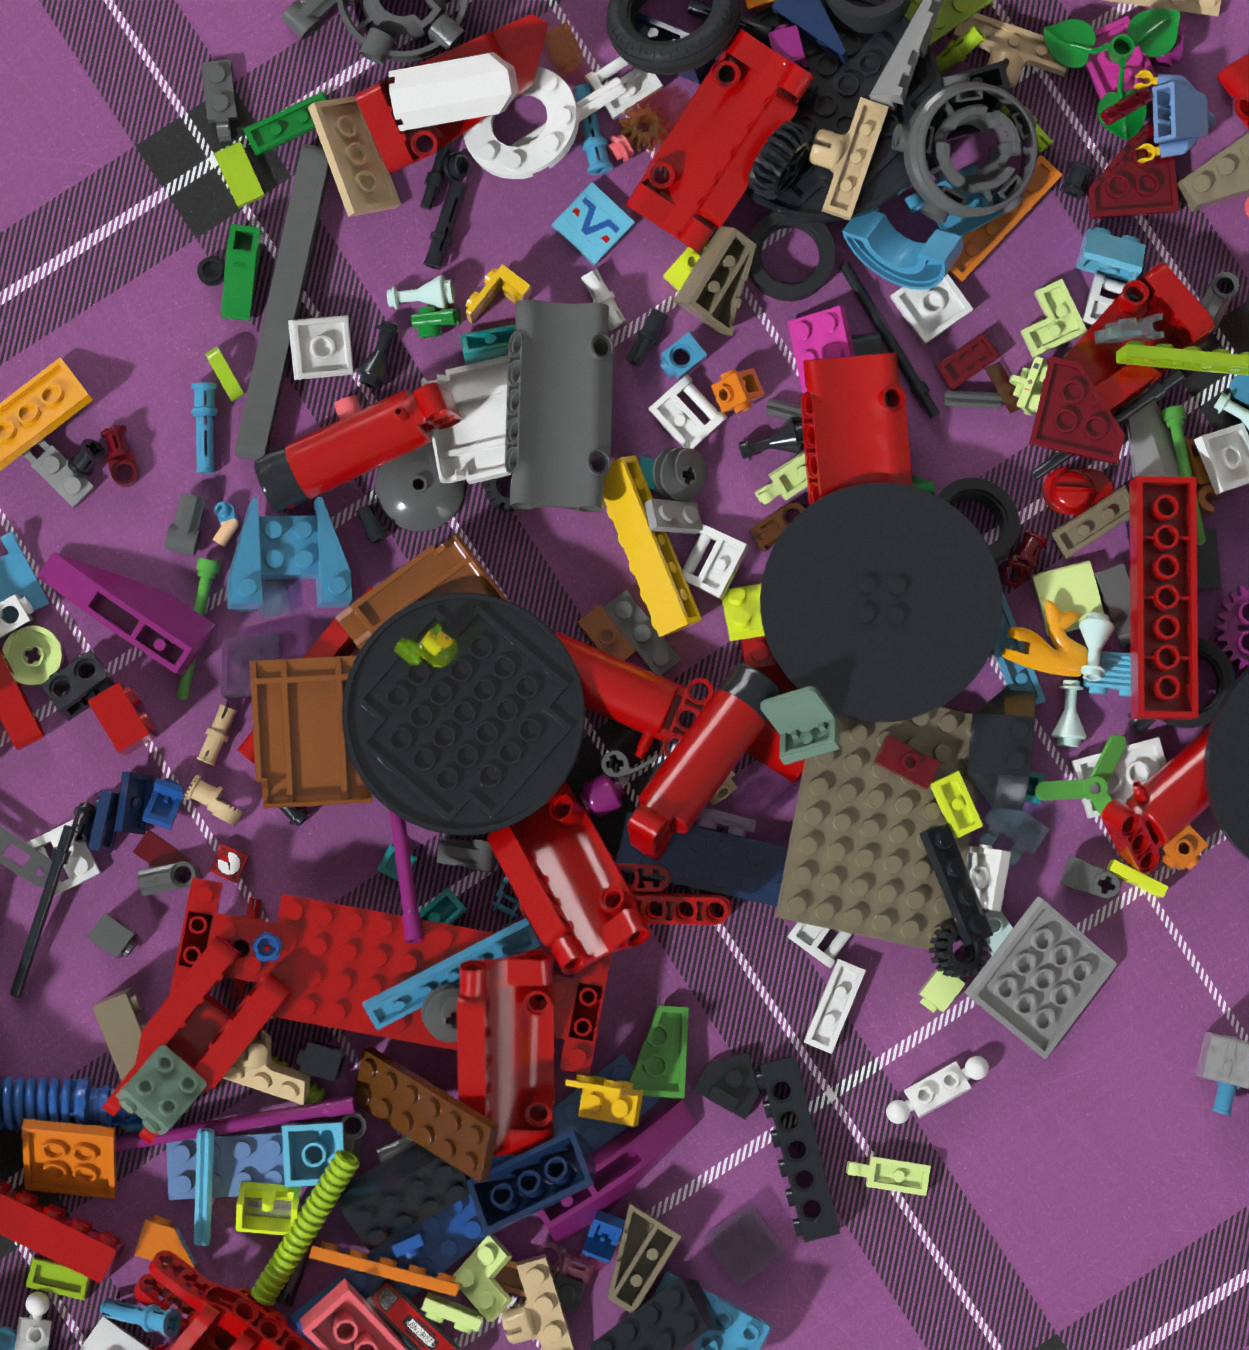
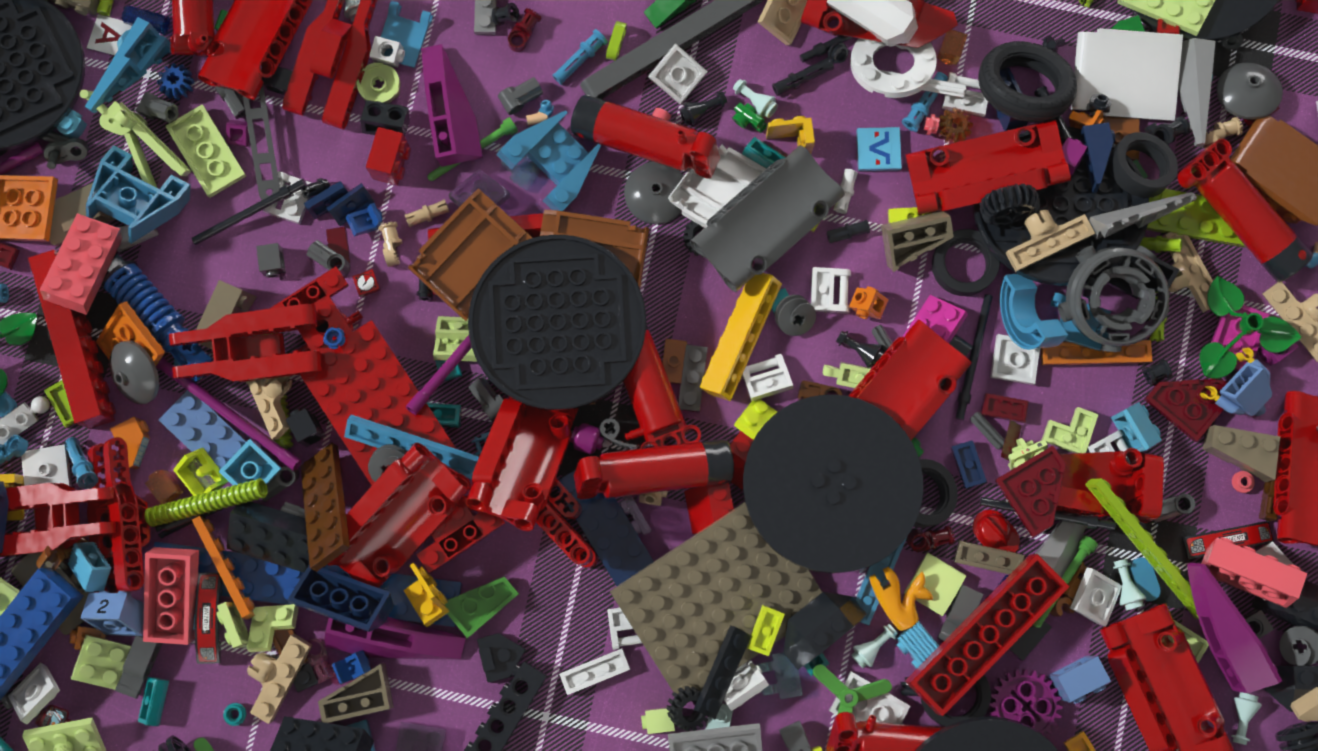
camera: 50 degrees right, 5 degrees down
(100, 1178) = (134, 372): none -> dark grey dish
(161, 1090) = (204, 354): sand green bracket -> none
(203, 1186) = (180, 430): medium azure axle -> none
(243, 1256) = (163, 486): none -> clear orange brick
(370, 831) = (449, 335): none -> yellowish green slope
(374, 528) = (613, 186): black pin -> none
(409, 1246) = (248, 568): blue plate -> none
(434, 647) = (576, 272): clear neon green piece -> none
(673, 516) = (769, 333): light grey plate -> none
(684, 344) = (865, 255): dark azure brick -> none
(804, 724) = (727, 504): sand green bracket -> none
(906, 762) = (761, 581): dark red plate -> none
(987, 451) = (968, 464): none -> dark blue plate
(1096, 631) = (932, 615): light aqua piece -> none
(1126, 106) = (1223, 358): dark red axle -> none
(1129, 330) = (1110, 473): clear light blue plate -> none

